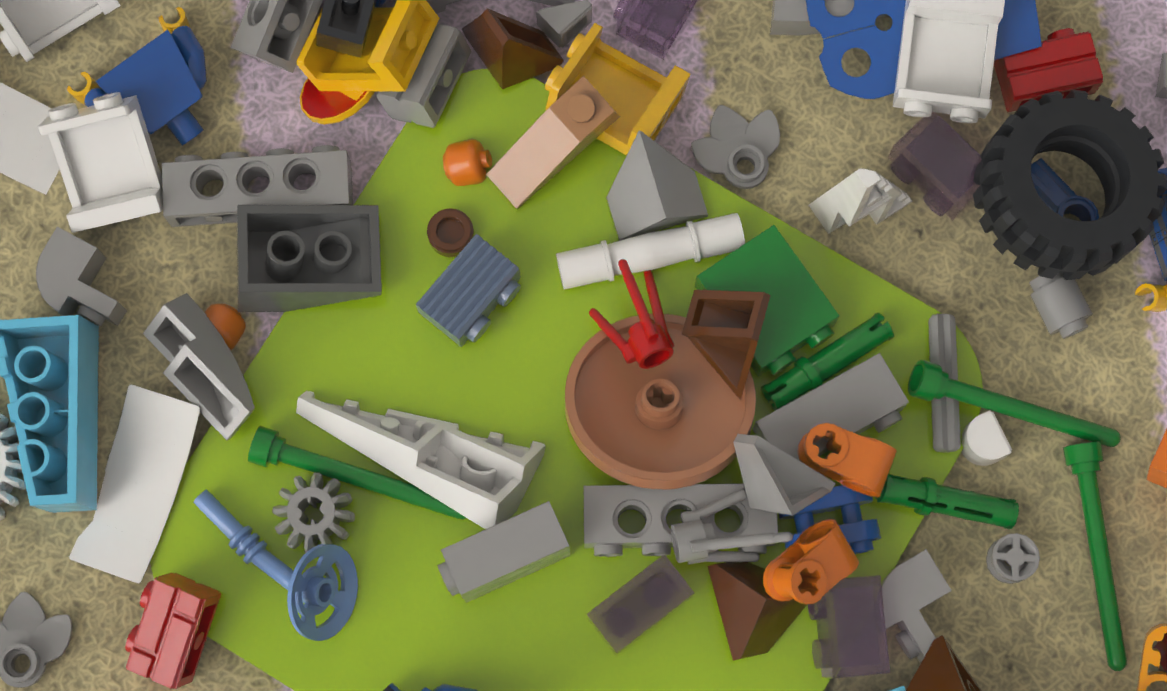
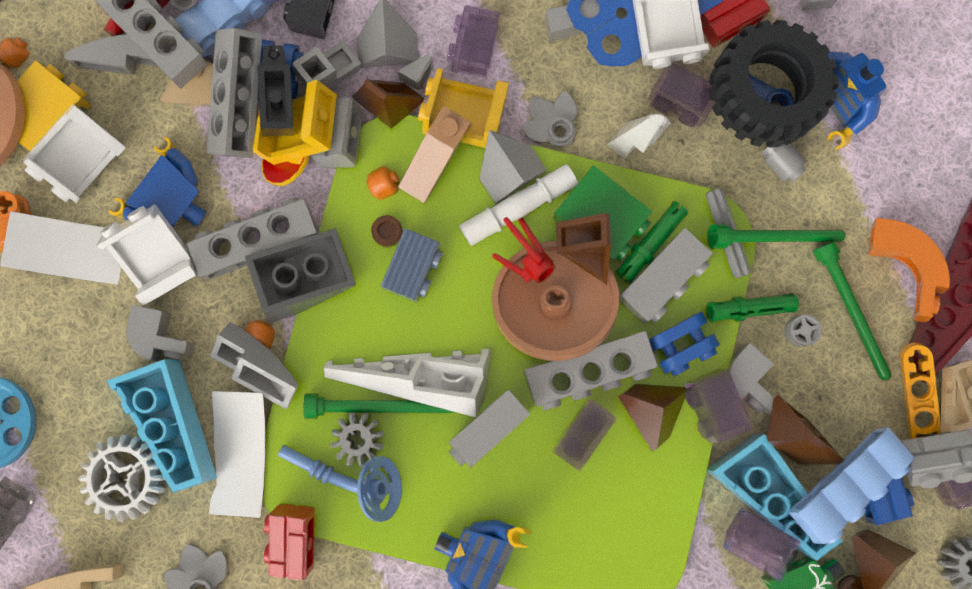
camera: 20 degrees left, 5 degrees up
(697, 542) = (607, 384): light grey plant -> none
(776, 479) = (649, 331): light grey slope -> none
(811, 565) = (685, 377): orange piece -> none
(856, 460) = (691, 302): orange piece -> none
(985, 440) = (764, 261): white brick -> none

